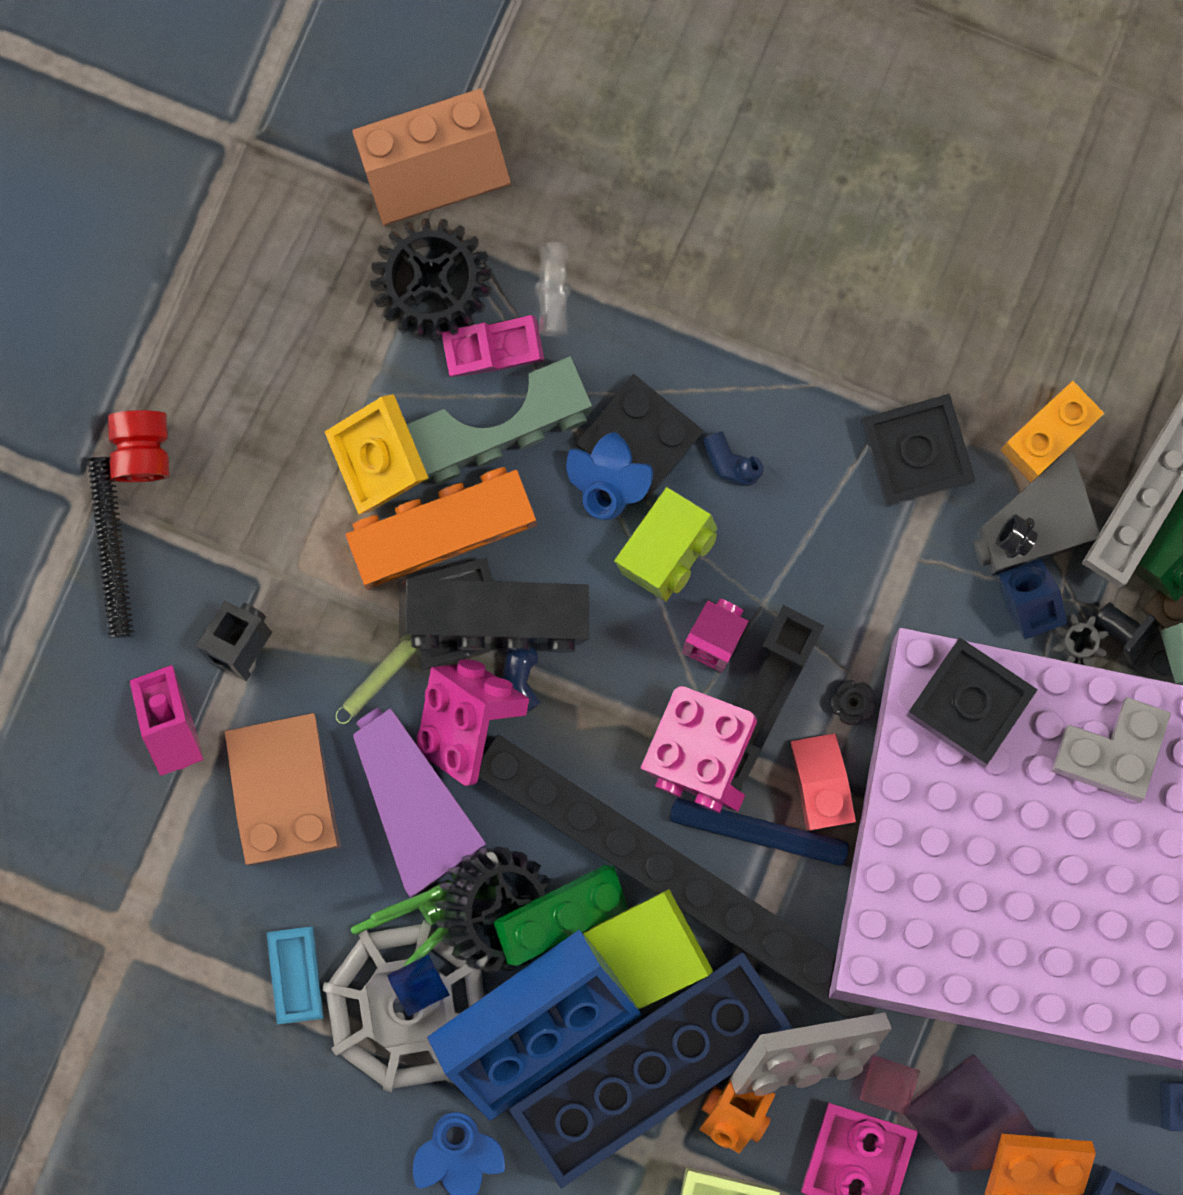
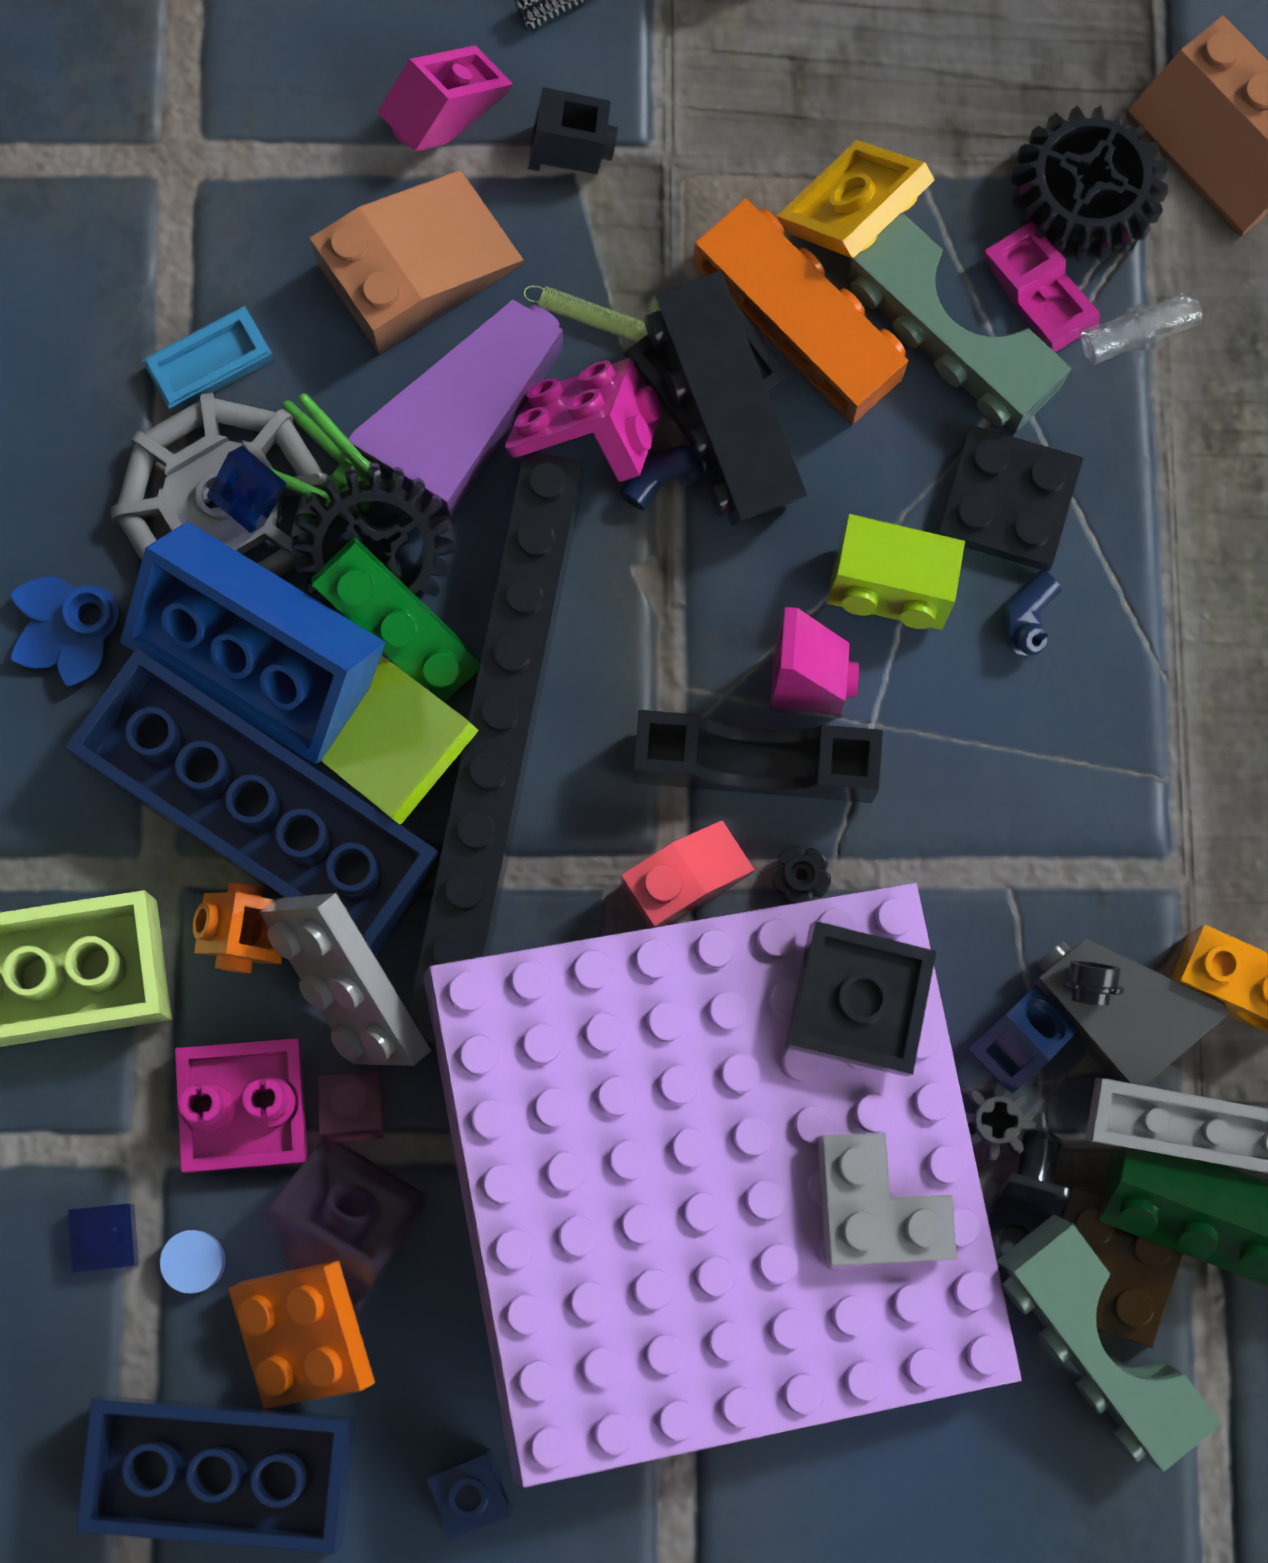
camera: 65 degrees right, 5 degrees down
(608, 470) = (950, 474): blue plate -> none
(700, 749) = (664, 702): bracket -> none
(760, 832) = (596, 822): dark blue axle -> none
(918, 450) = (1144, 829): black plate -> none

